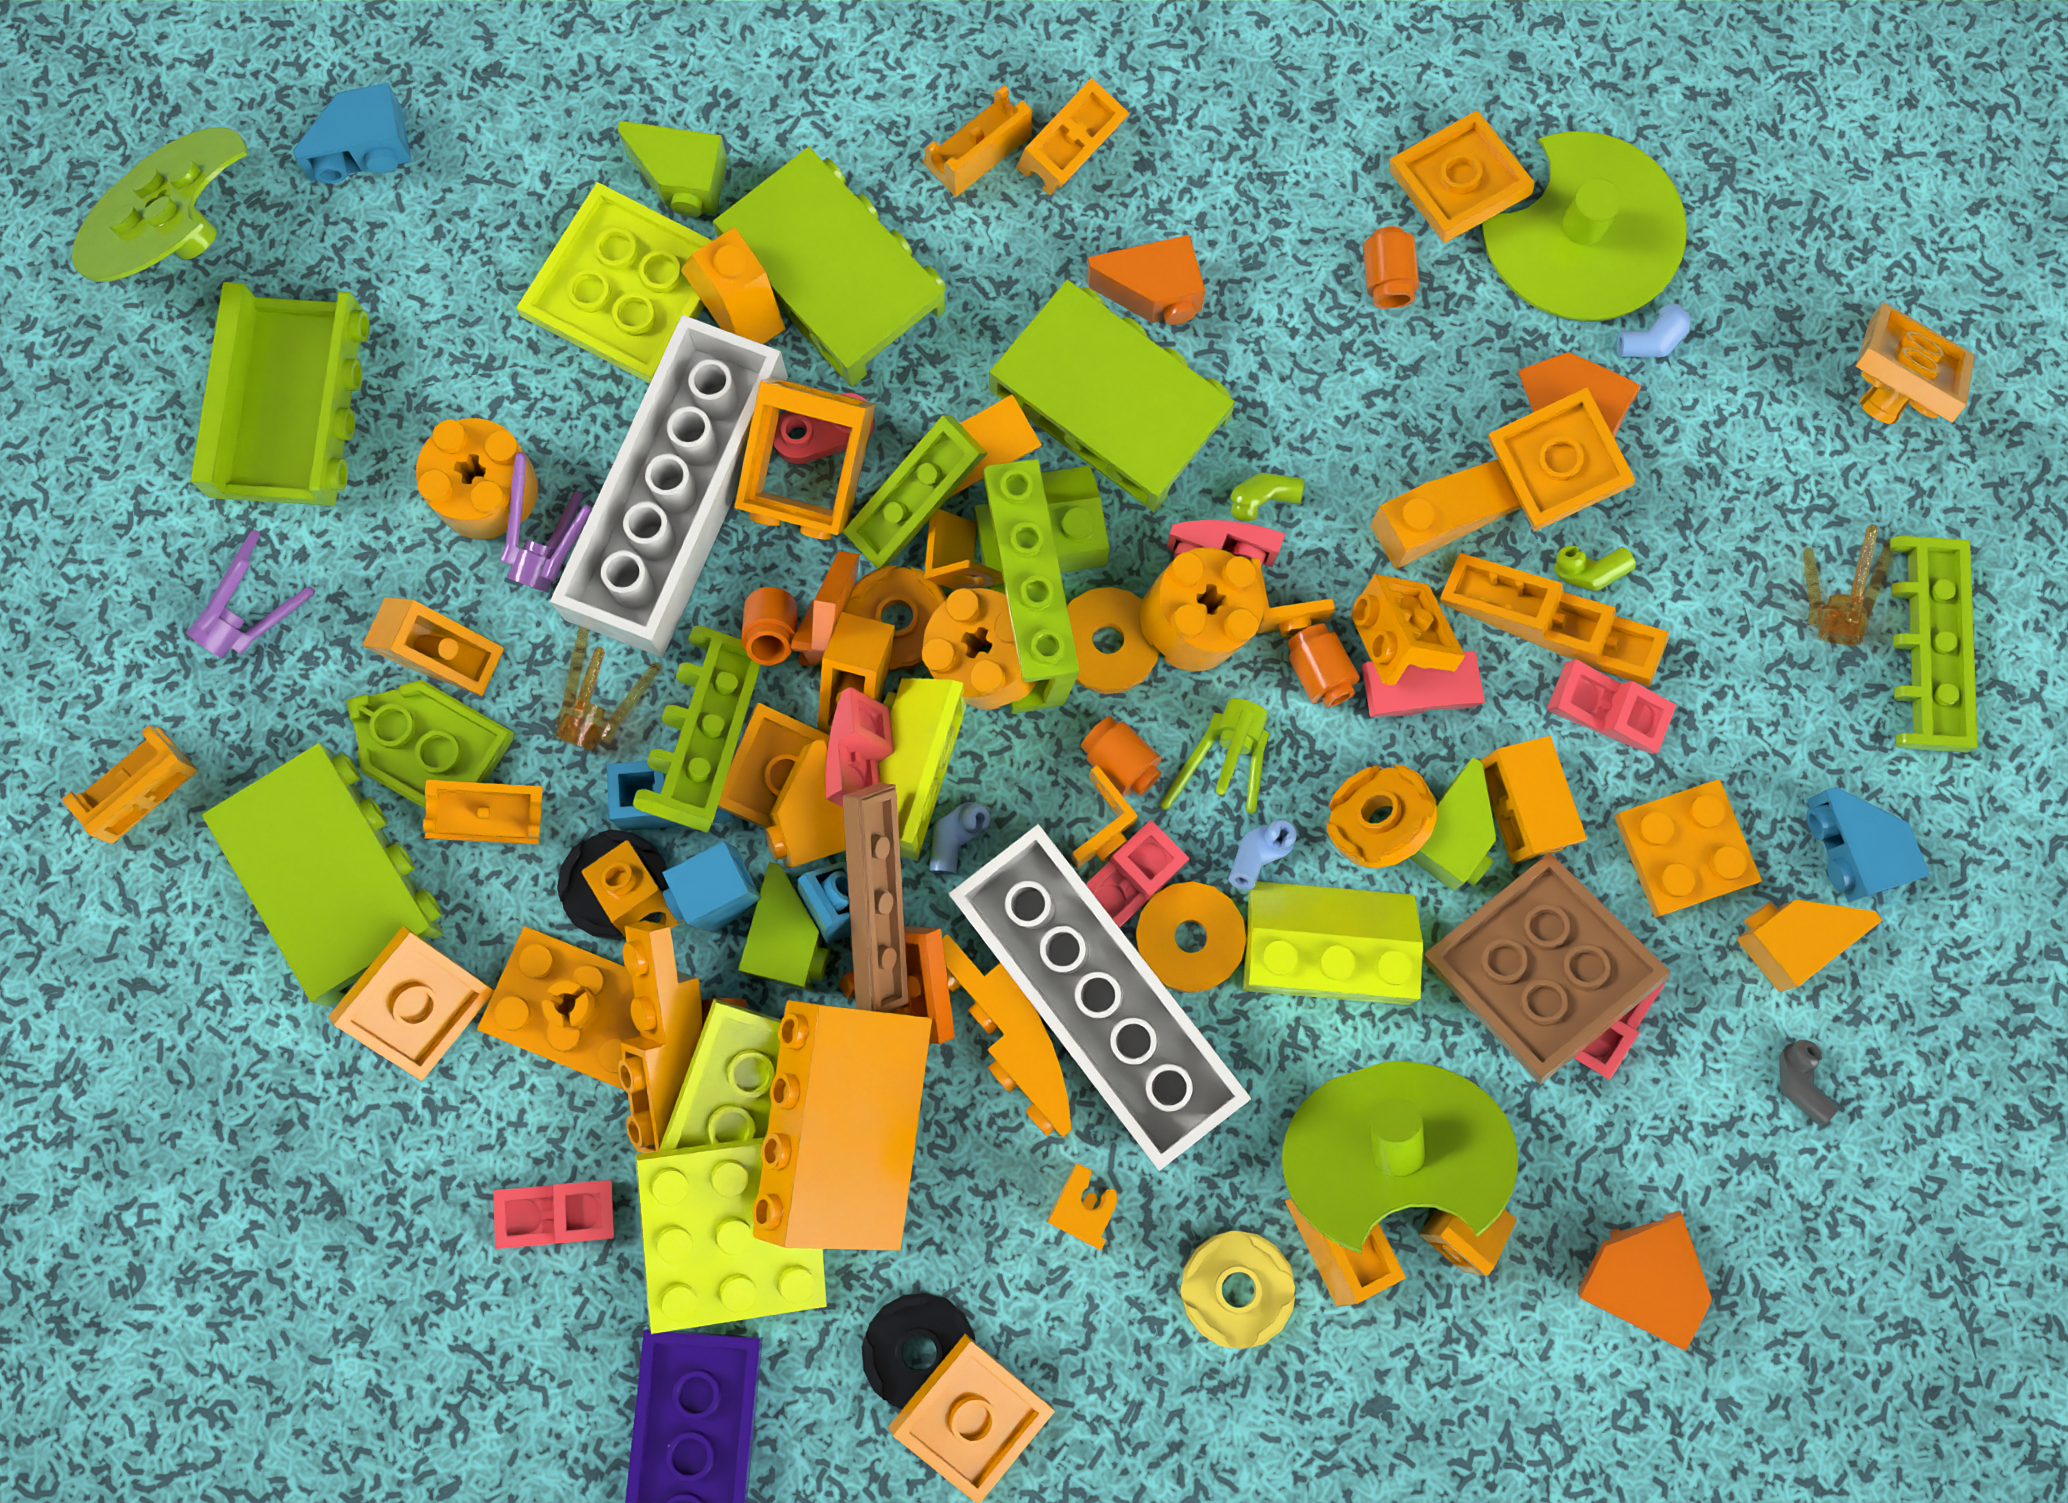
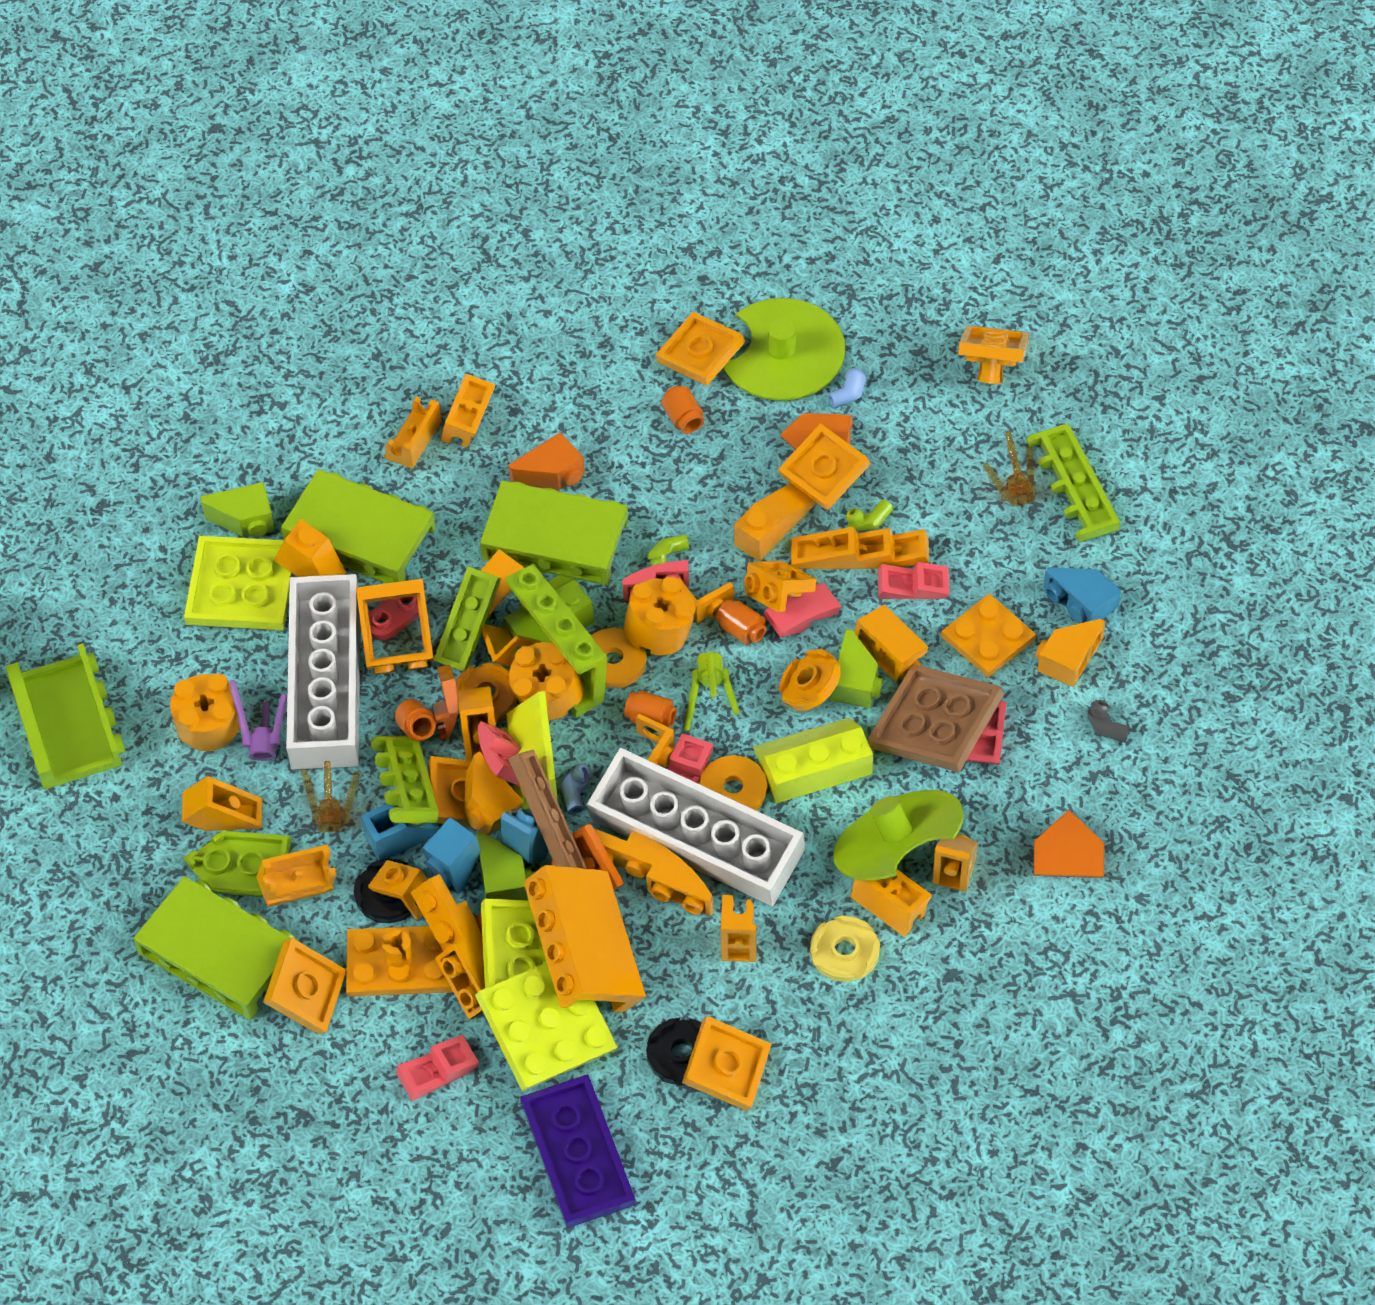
camera: 20 degrees left, 20 degrees down
(131, 787) = (78, 949): light orange hinge -> none
(220, 626) = (87, 847): medium lavender plant -> none
(355, 134) = (42, 564): dark azure slope -> none
(1259, 849) = (752, 726): light blue arm -> none

